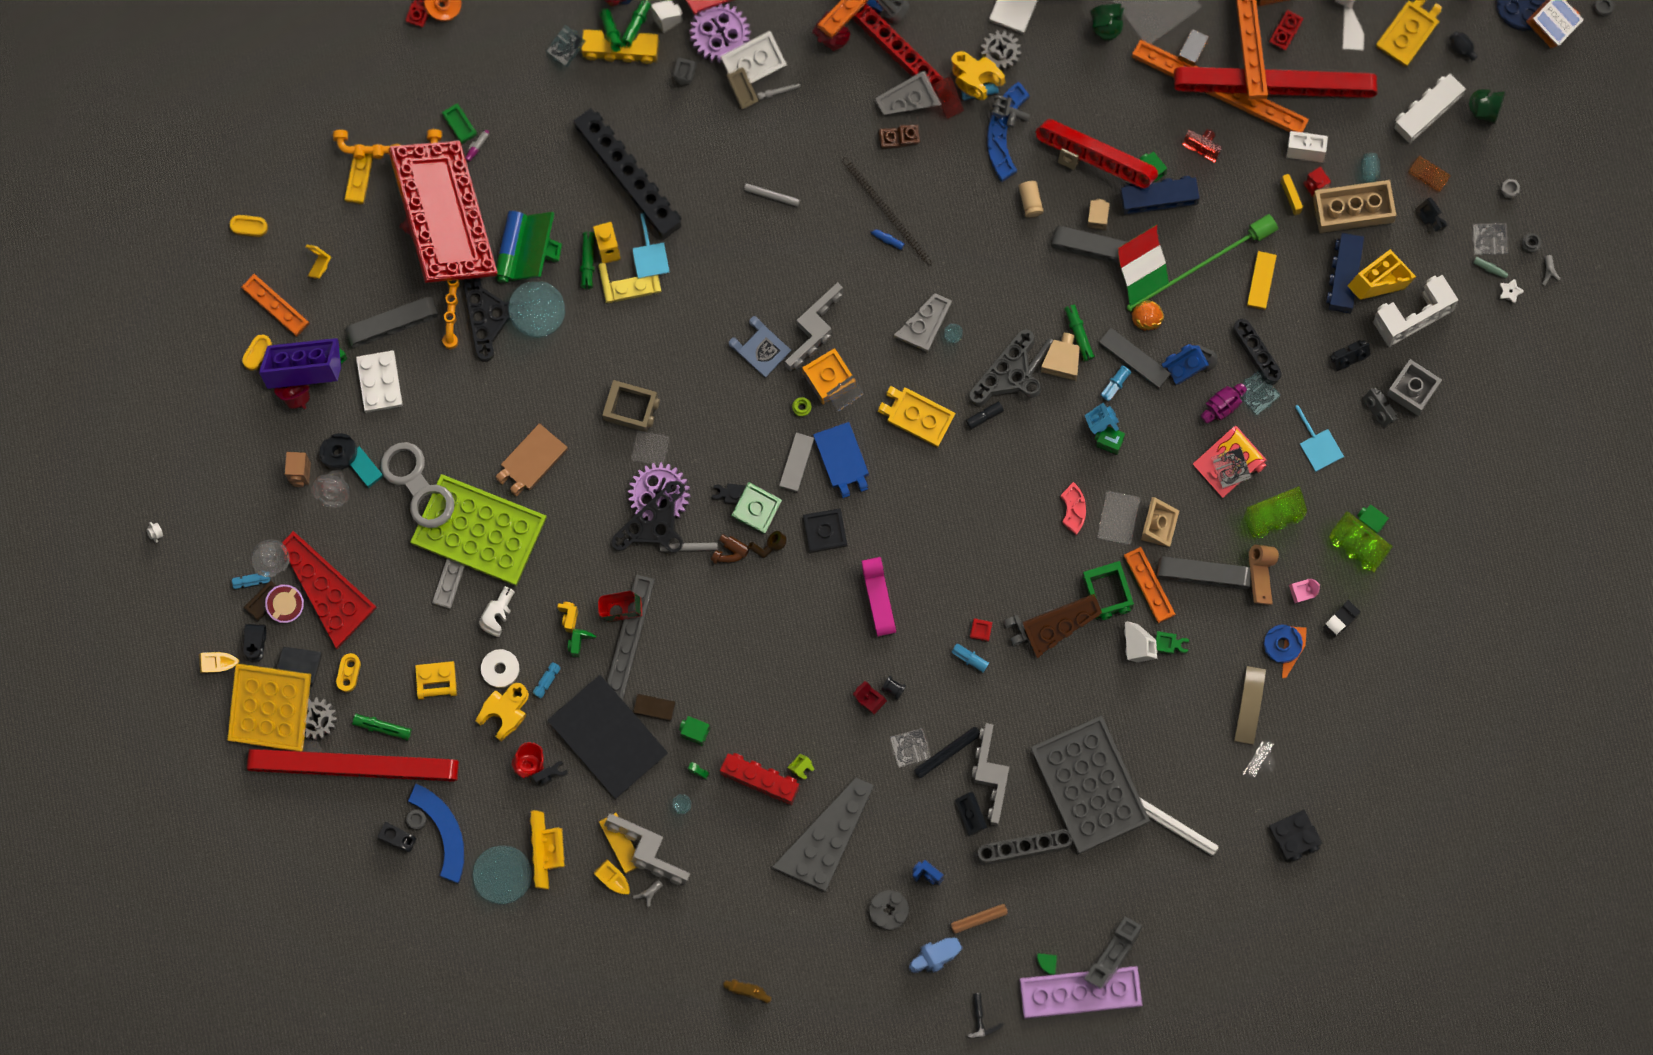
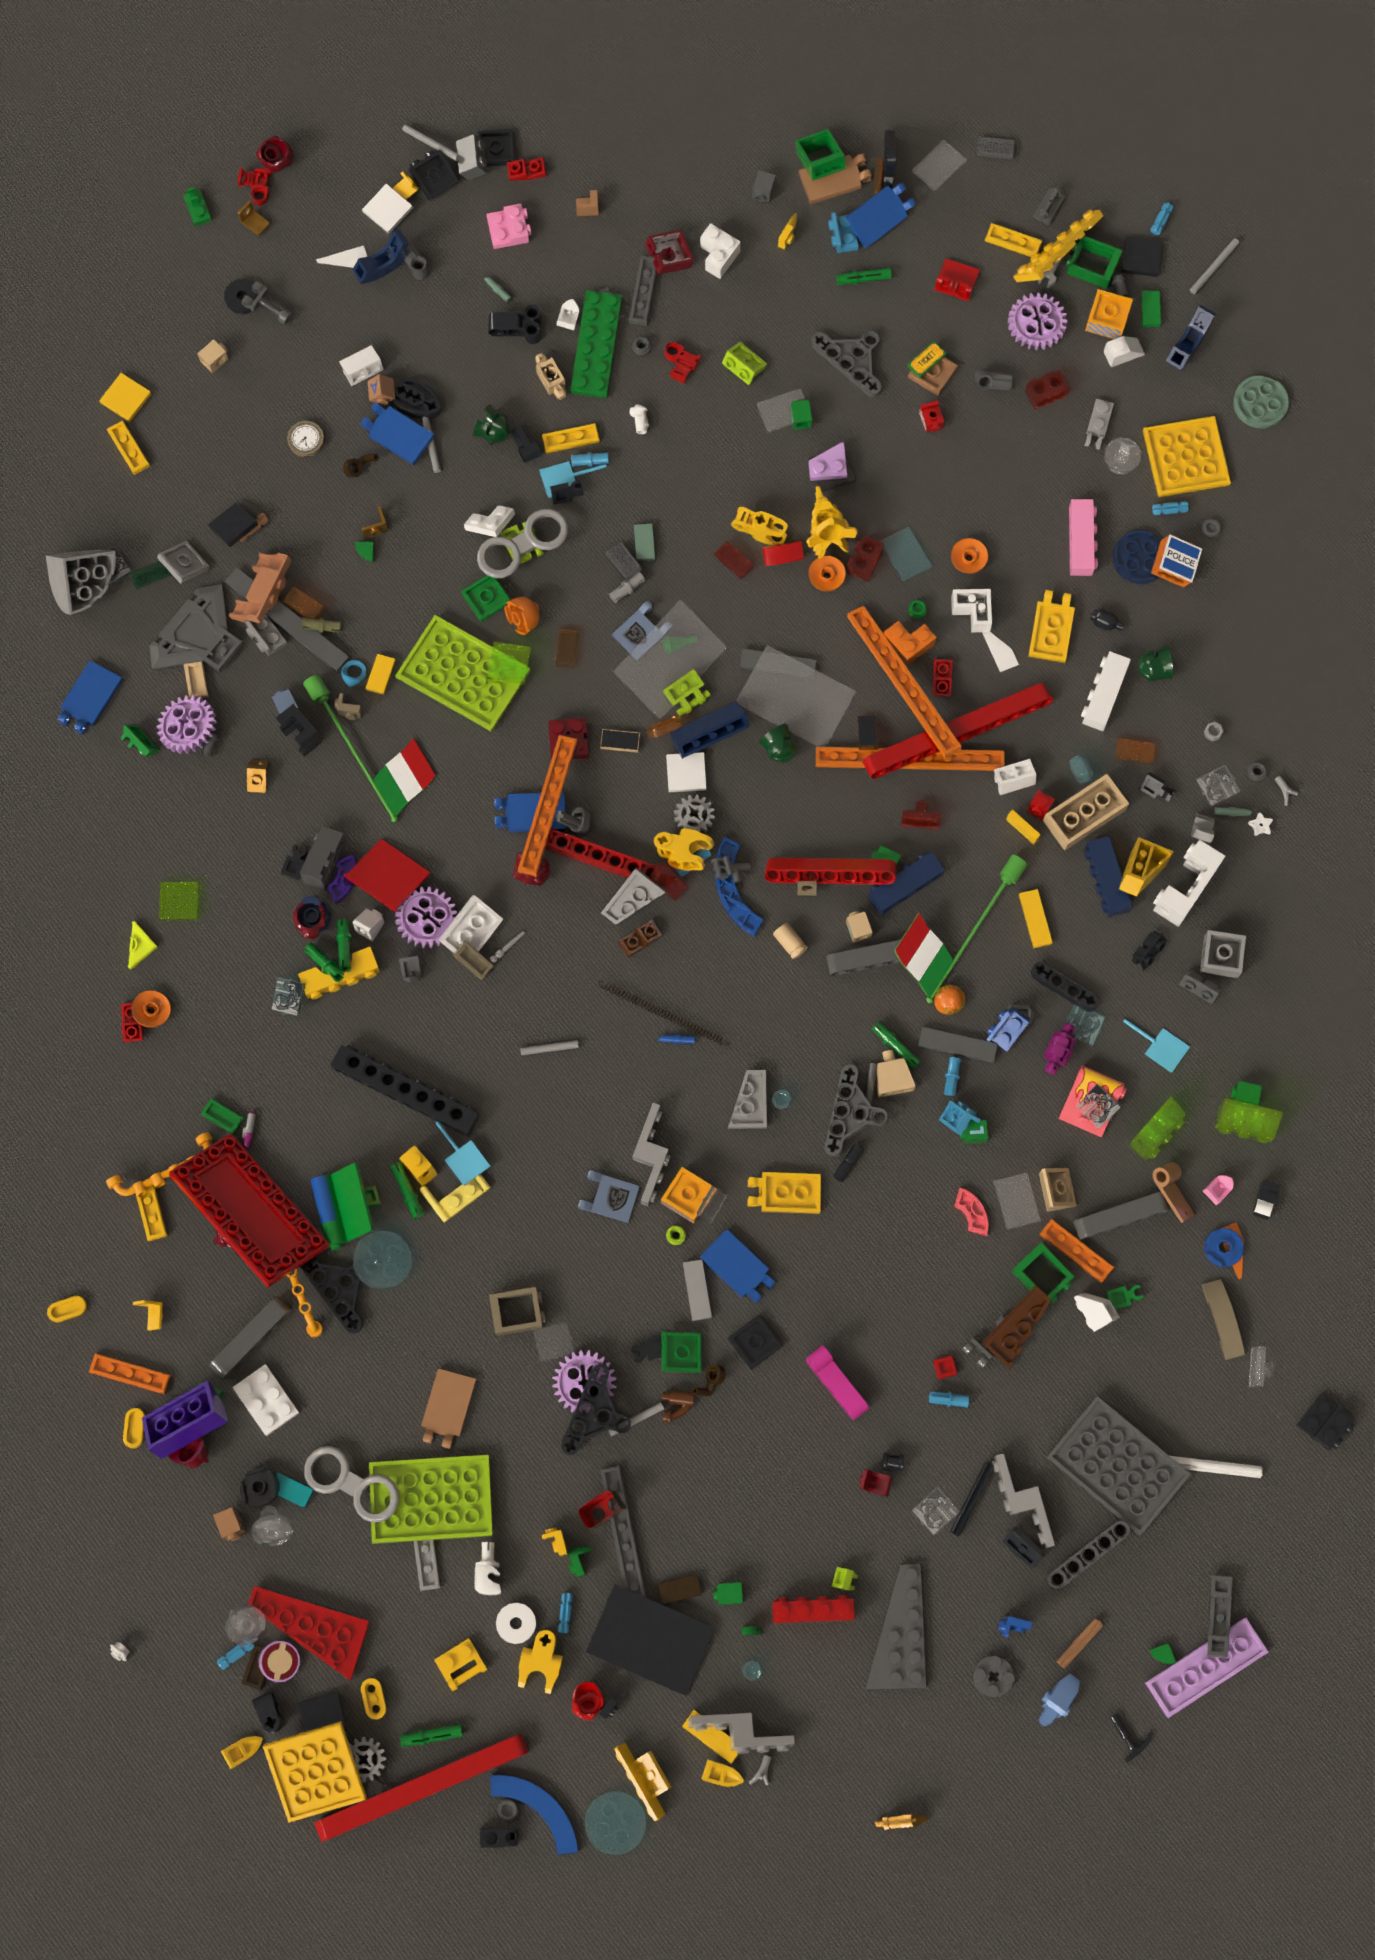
camera: 30 degrees left, 0 degrees up
(1453, 268) = (1203, 828): none -> light grey slope

